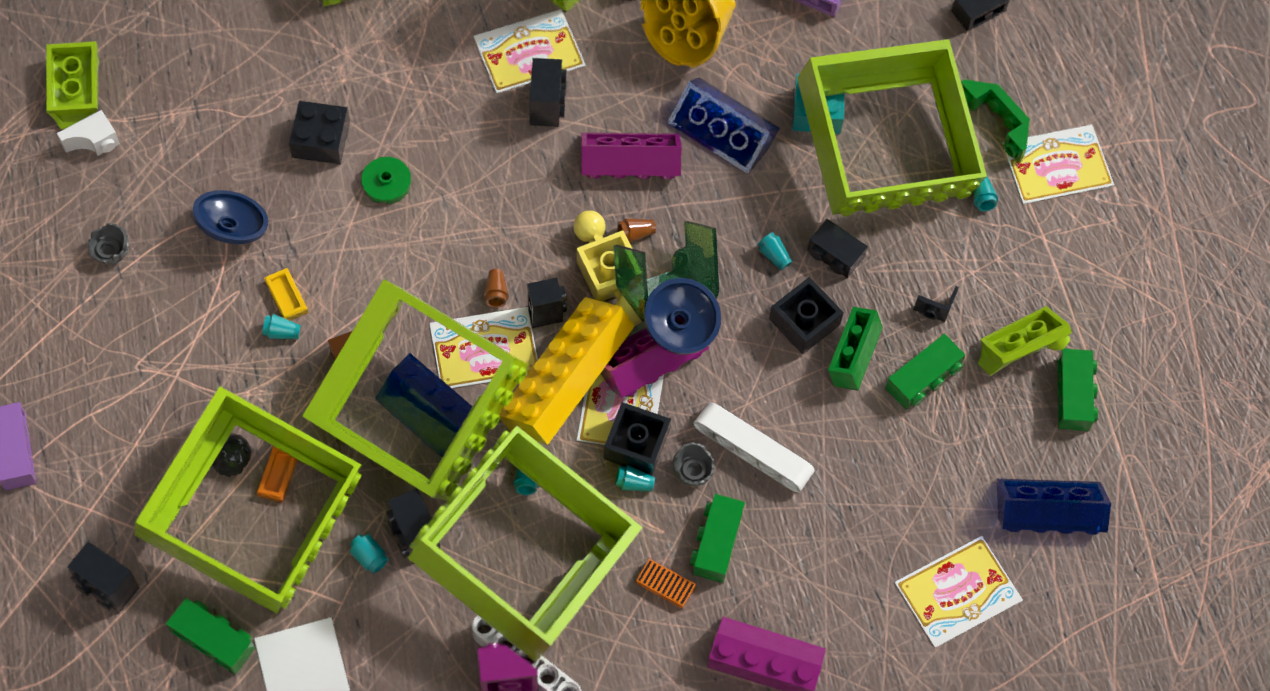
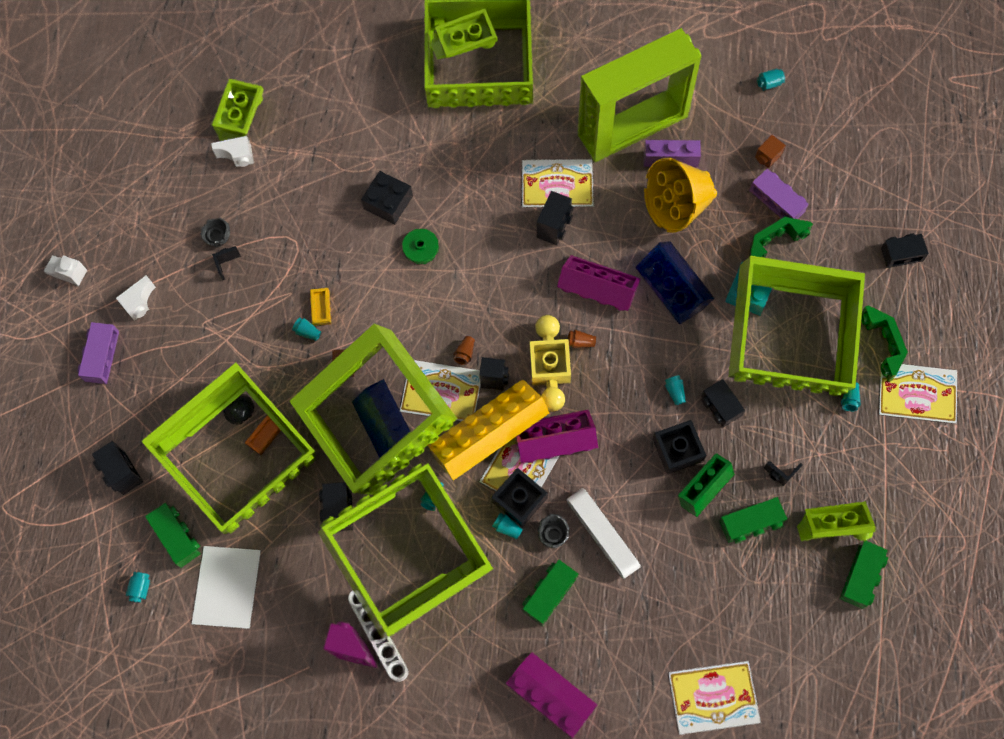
camera: 30 degrees right, 5 degrees up
(32, 363) = (136, 297): none -> white arch
(133, 270) = (223, 256): none -> black bracket
(230, 217) = (301, 239): dark blue dish -> none
(368, 553) = (301, 514): teal brick -> none
(665, 583) = (500, 612): orange tile -> none
(693, 305) = (596, 416): dark blue dish -> none
(694, 261) = (589, 397): clear green windscreen -> none
(841, 16) = (794, 227): none -> green slope
(1053, 506) = (811, 659): clear blue slope -> none

